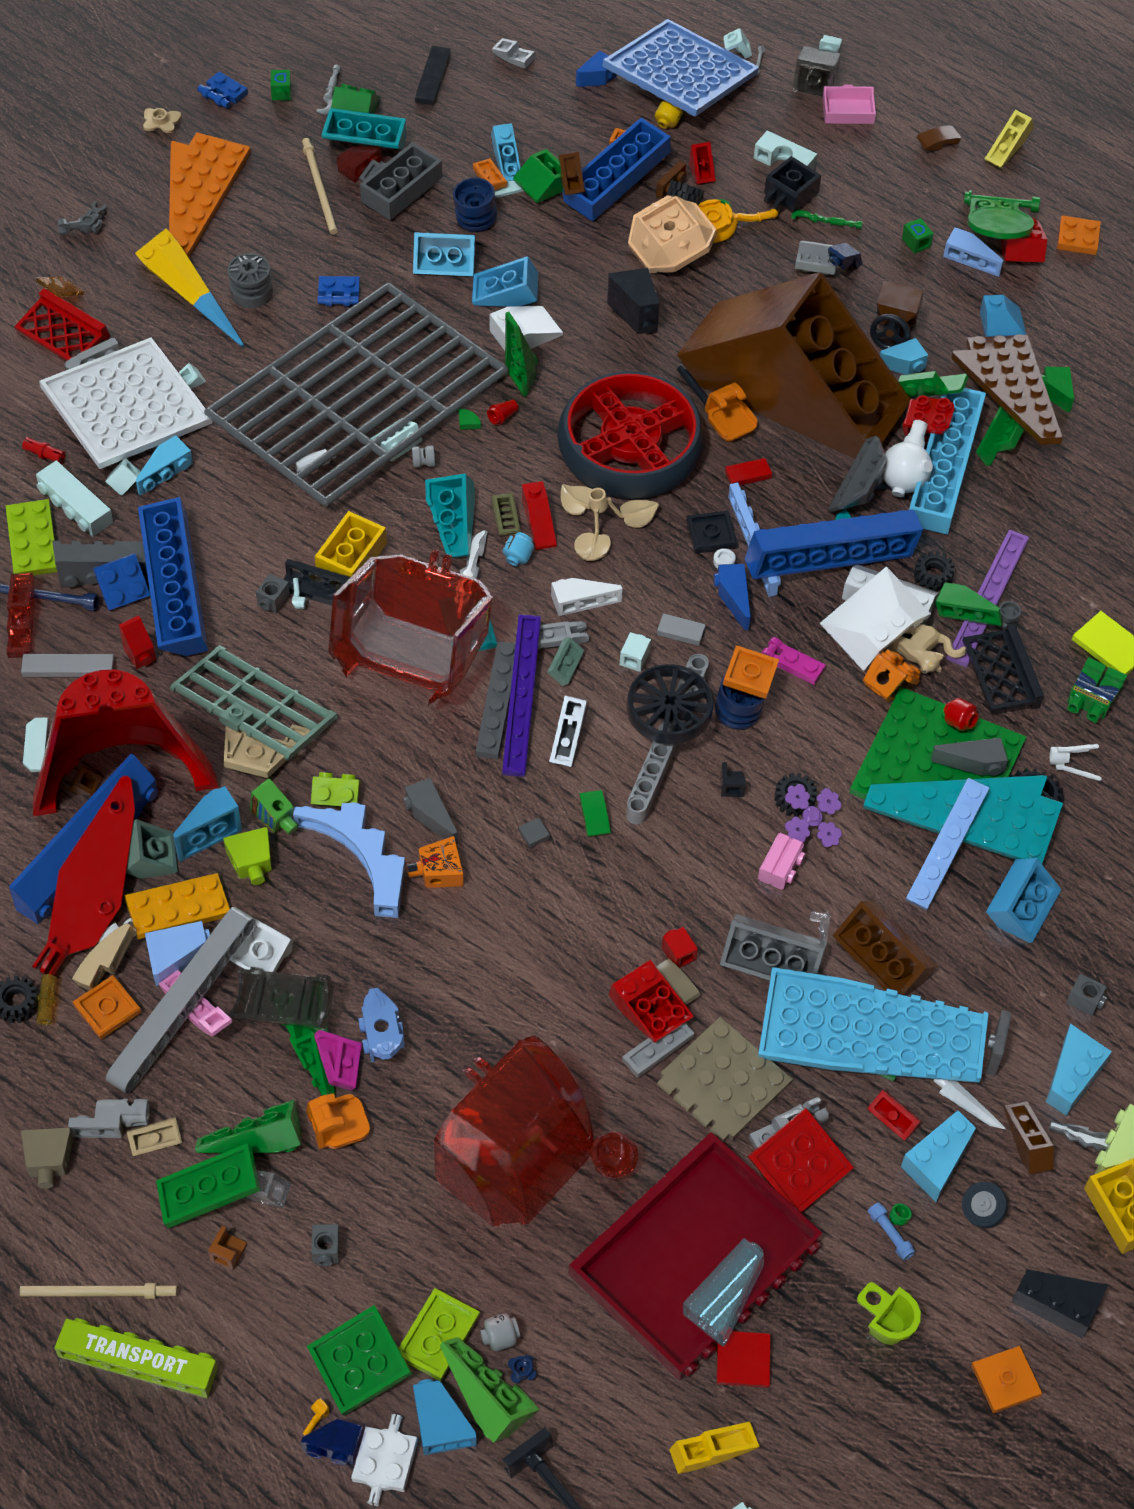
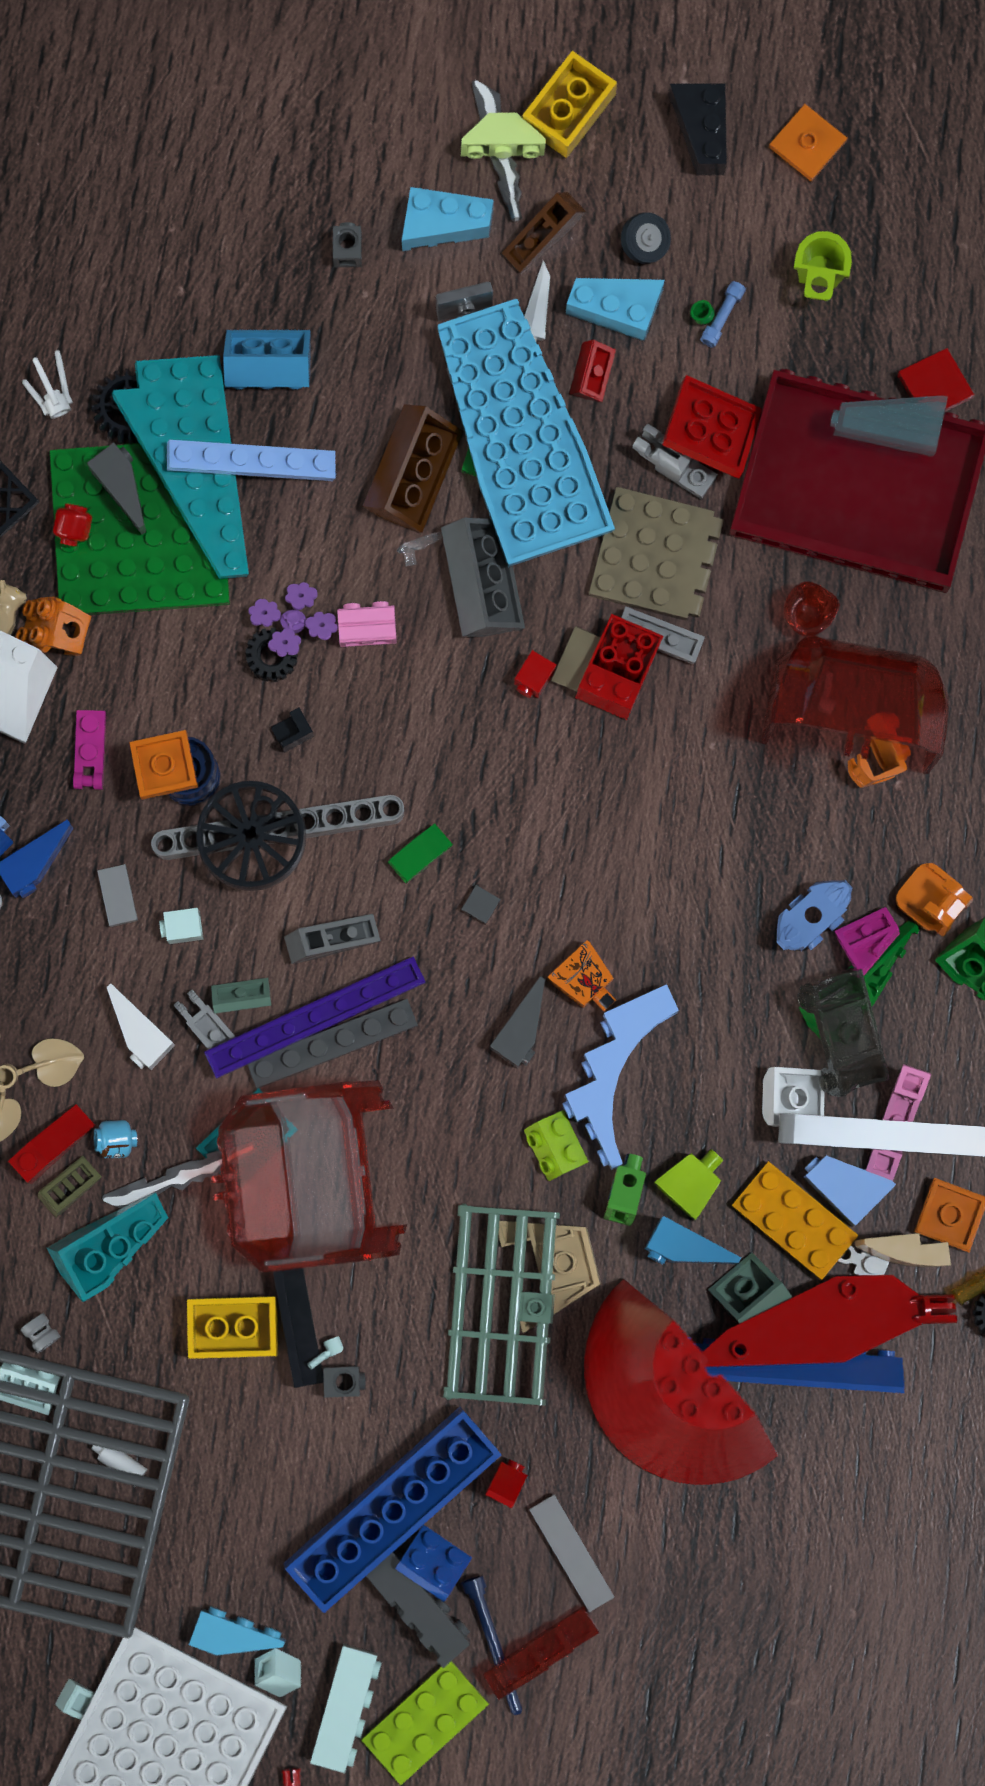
camera: 120 degrees left, 25 degrees up
(35, 743) = (691, 1516): light aqua piece -> none

